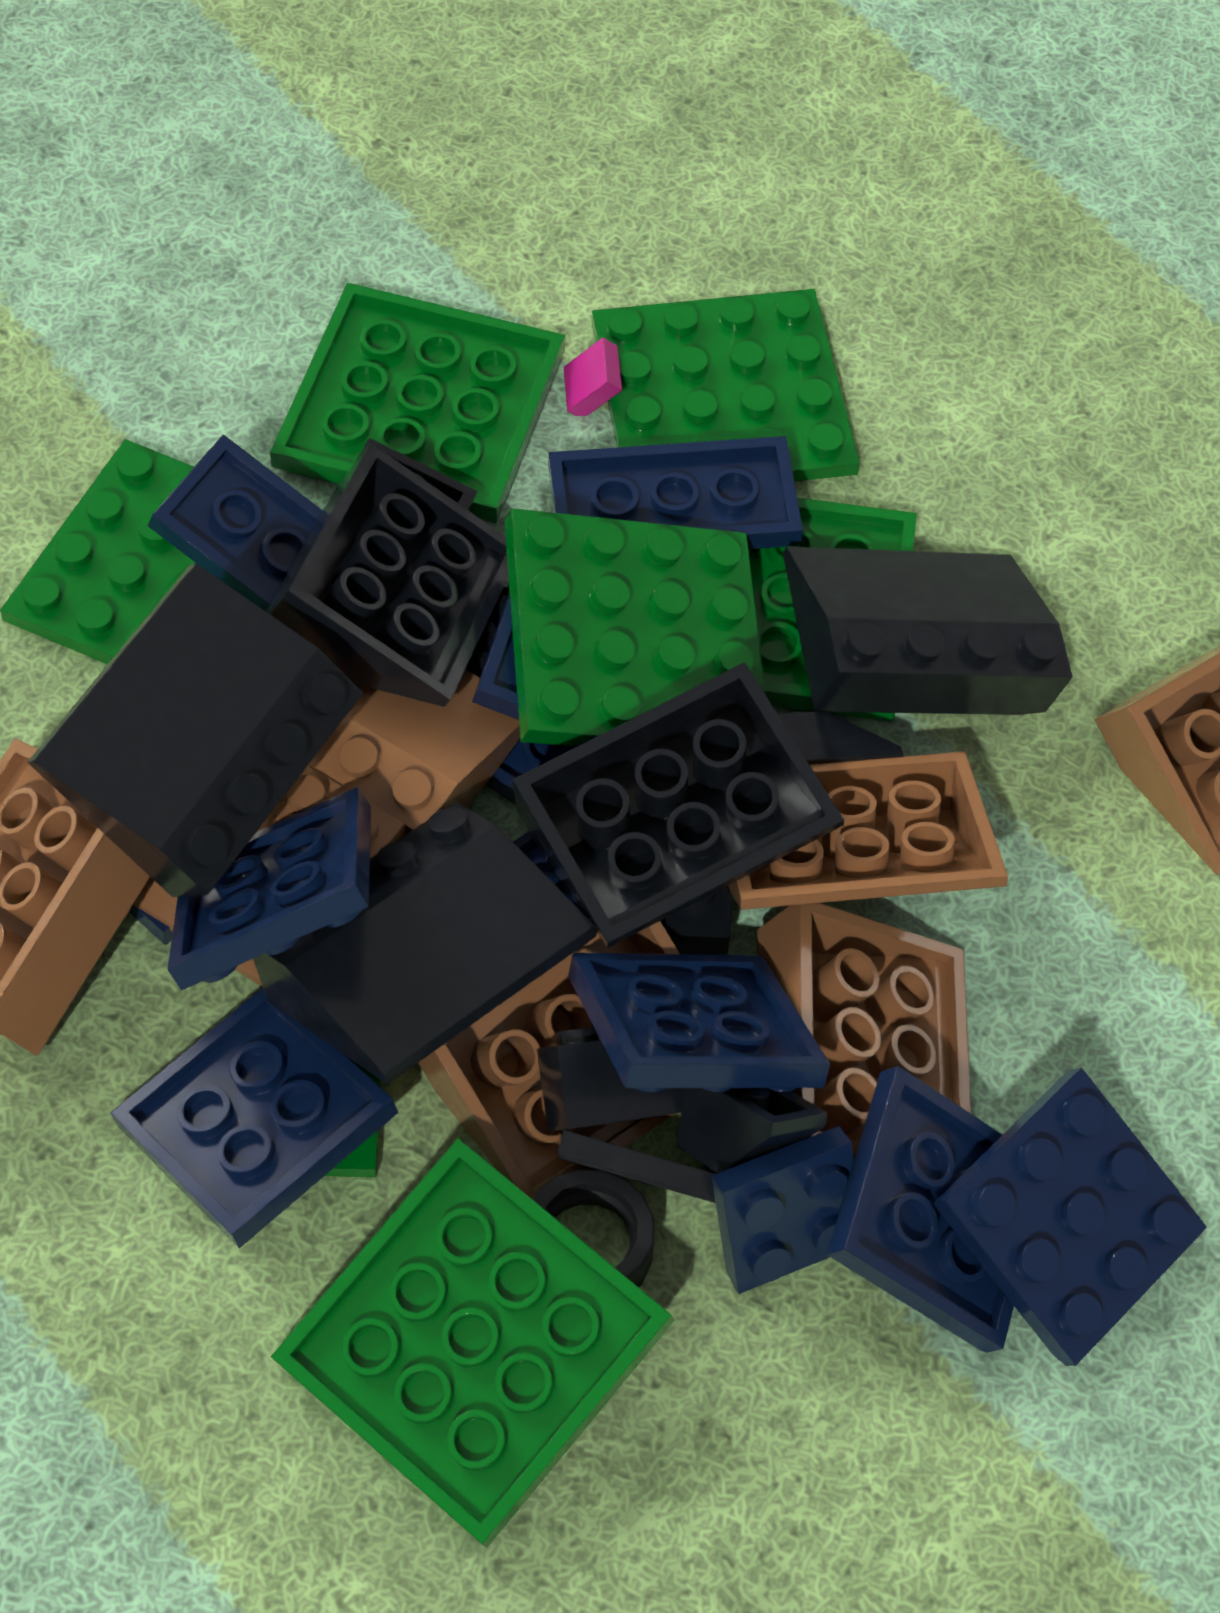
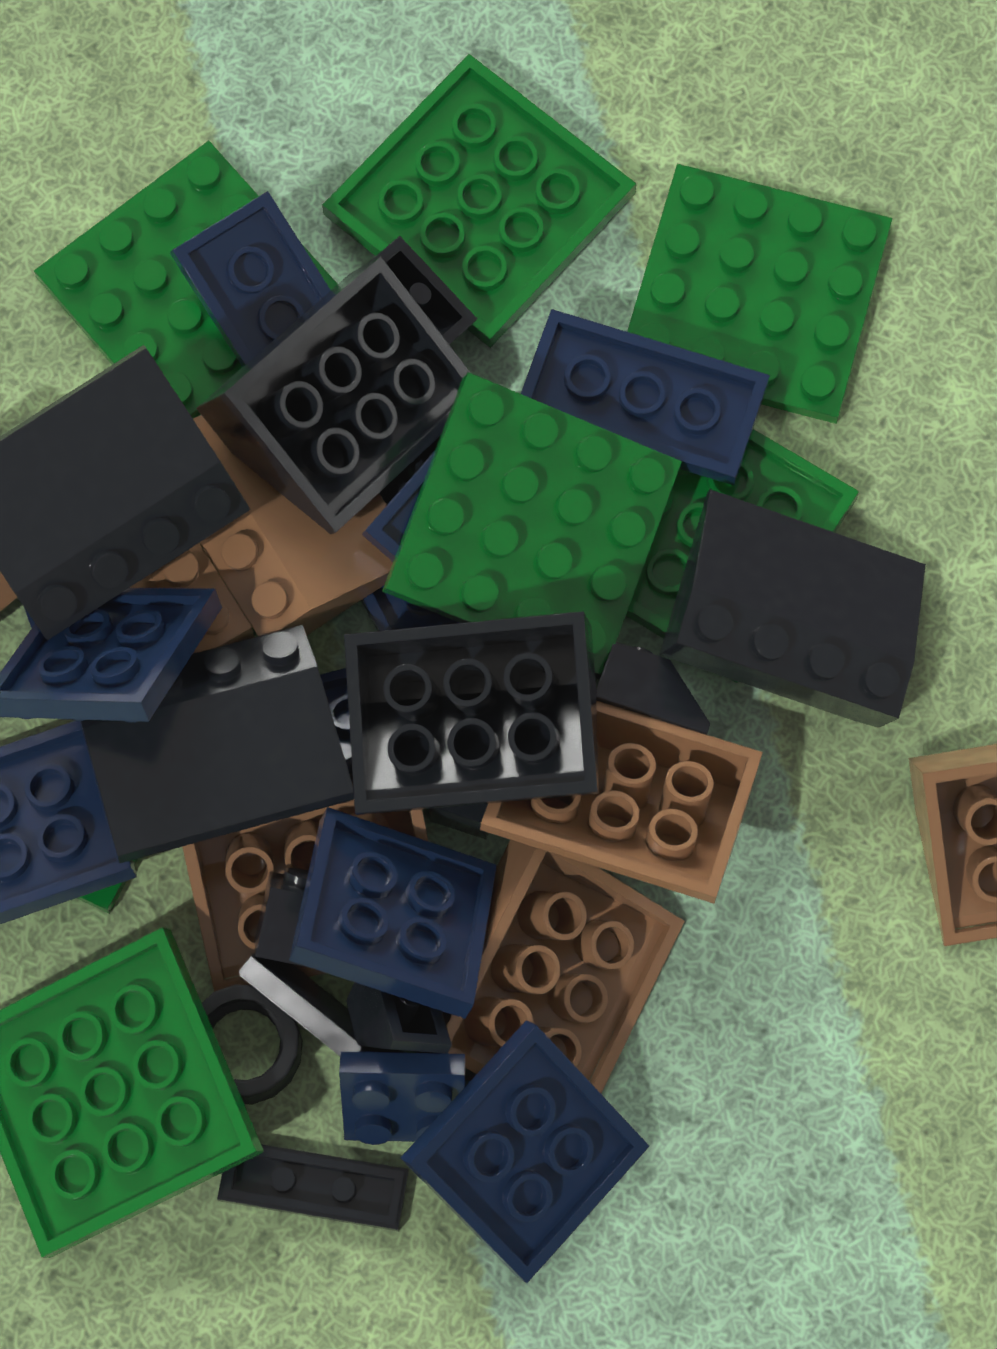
camera: 30 degrees right, 15 degrees up
(592, 378) = (641, 236): dark pink tile -> none
(736, 1350) = (318, 1187): none -> black tile
(1070, 1216) = (633, 1202): dark blue plate -> none

